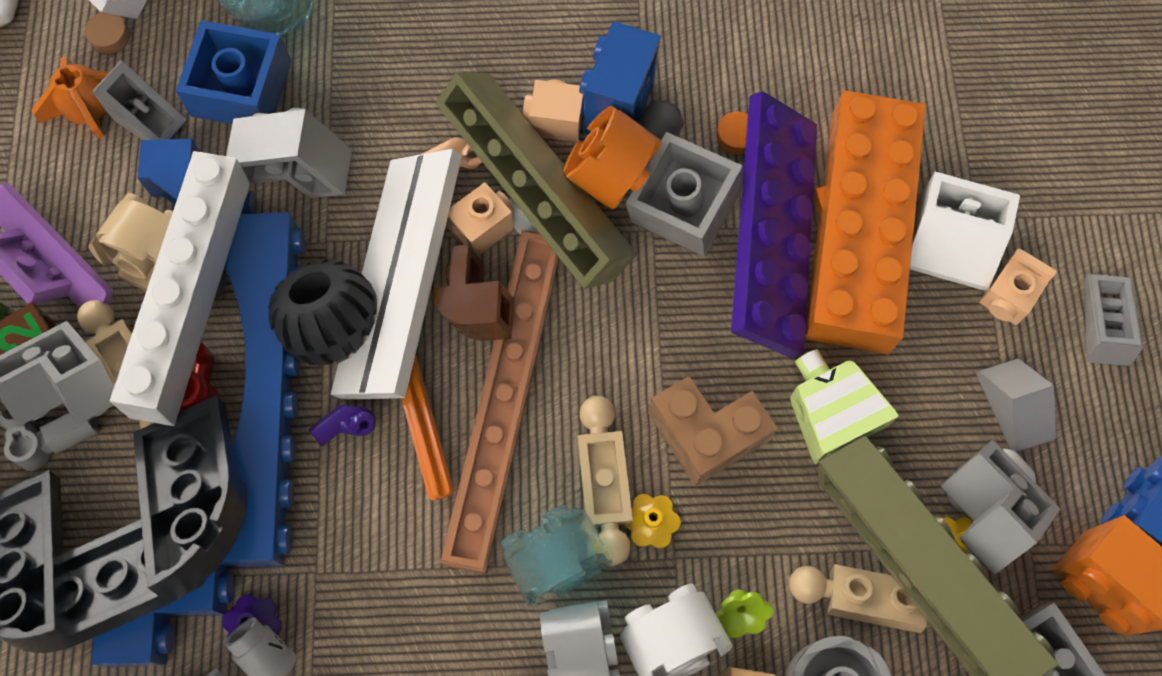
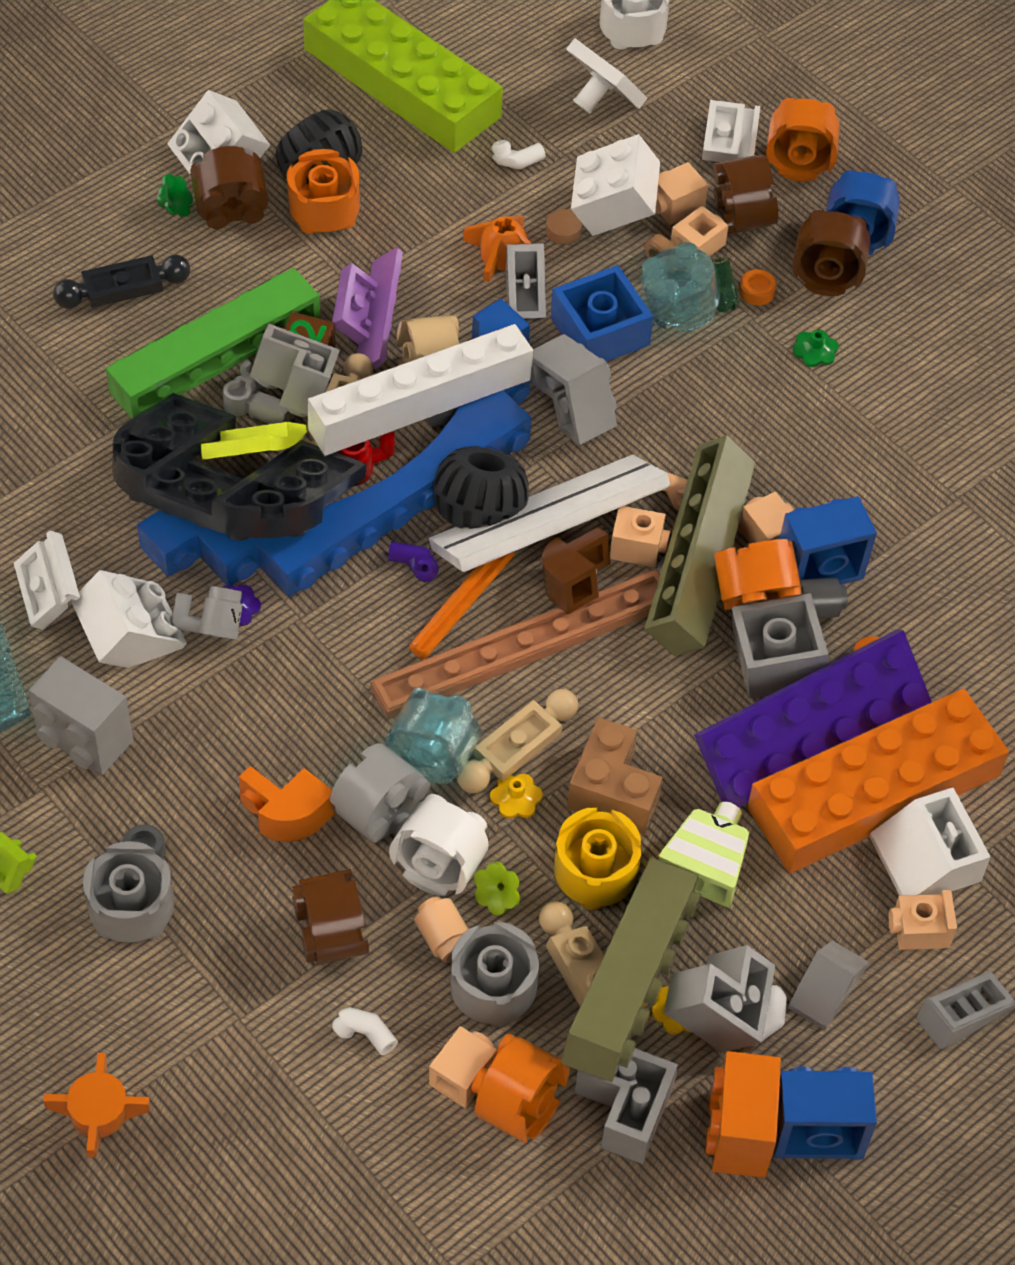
camera: 50 degrees right, 15 degrees down
(98, 479) = (254, 440): none -> neon yellow slope
(799, 487) = (597, 857): none -> yellow brick

